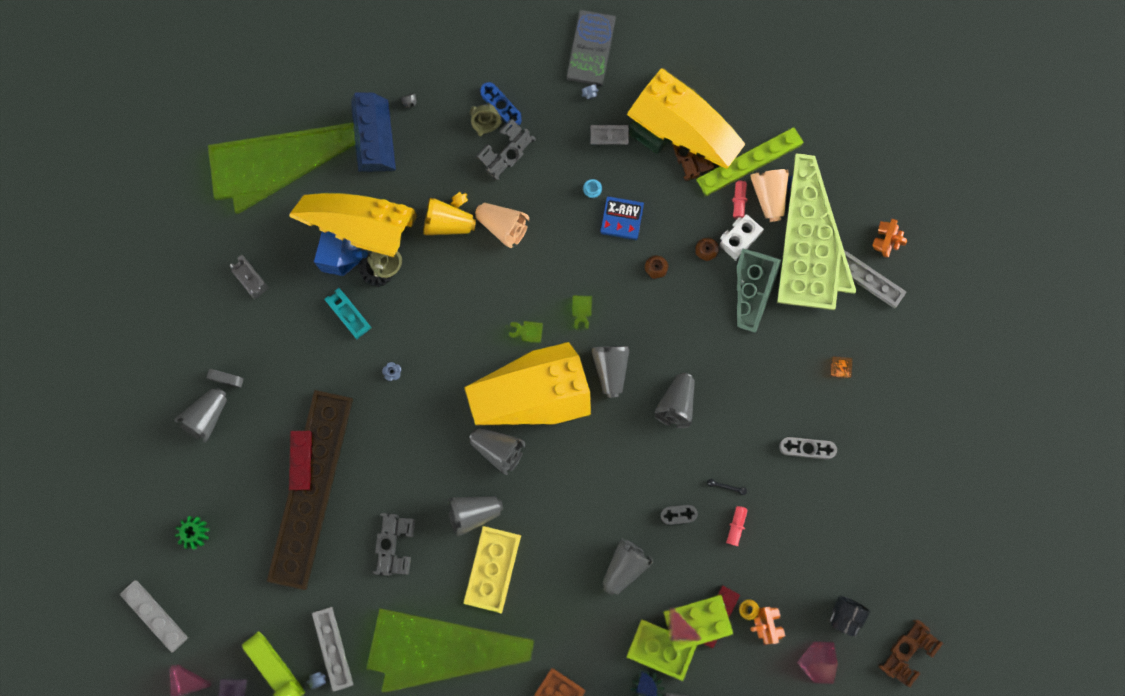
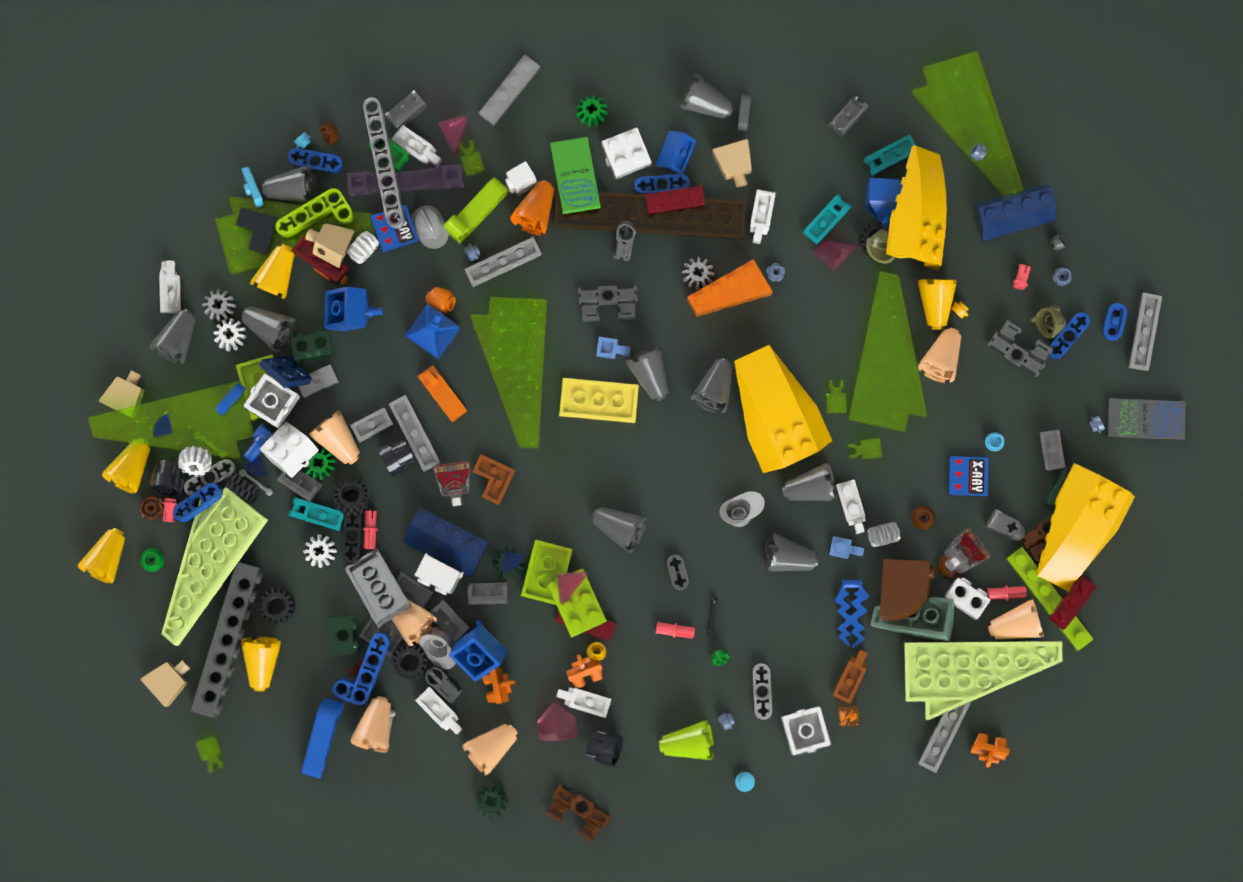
camera: 80 degrees right, 5 degrees up
(220, 667) = (471, 161): none -> clear neon green plate
(243, 503) = (626, 153): none -> white brick
(249, 617) = (520, 179): none -> white brick
(251, 452) = (676, 151): none -> blue panel
(256, 559) = (575, 175): none -> bright green tile
(272, 395) = (734, 161): none -> tan torso
(276, 486) = (648, 179): none -> blue beam
(283, 607) = (535, 209): none -> orange cone
(295, 242) = (890, 155): none -> teal plate
(307, 158) = (978, 152): none -> sand blue plate
(331, 376) = (761, 214): none -> white hinge
(335, 518) = (624, 243): none -> dark grey piece
(382, 312) = (834, 253): none -> clear pink slope
(384, 442) = (700, 267): none -> light grey gear
(400, 411) = (735, 288): none -> orange wedge
(437, 138) = (1022, 276): none -> coral pin
(440, 550) = (609, 348): none -> medium blue plate
(443, 97) = (1057, 276): none -> sand blue plate
(496, 59) = (1114, 322): none -> blue plate
(508, 35) = (1145, 332): none -> light grey plate
(508, 277) = (888, 372): none -> clear neon green wing
(624, 439) = (742, 508): none -> light grey piece
(634, 332) = (851, 505): none -> white hinge
(669, 305) = (883, 534): none -> light grey gear
(673, 192) = (1003, 524): none -> dark grey piece
(676, 348) = (842, 548): none -> medium blue plate
(696, 230) = (965, 552): none -> torso
(724, 293) = (904, 587): none -> reddish brown brick
(747, 349) = (862, 595): none -> blue piece
(758, 140) = (1072, 602): none -> dark red plate
(770, 484) = (720, 657): none -> green plate
(798, 629) = (585, 701): none -> white hinge
(804, 358) = (851, 677): none -> dark orange hinge
(834, 488) = (726, 721): none -> sand blue plate
(852, 528) = (689, 742): none -> lime cone
(853, 410) = (805, 730): none -> white brick
(896, 478) = (744, 781): none -> medium azure plate

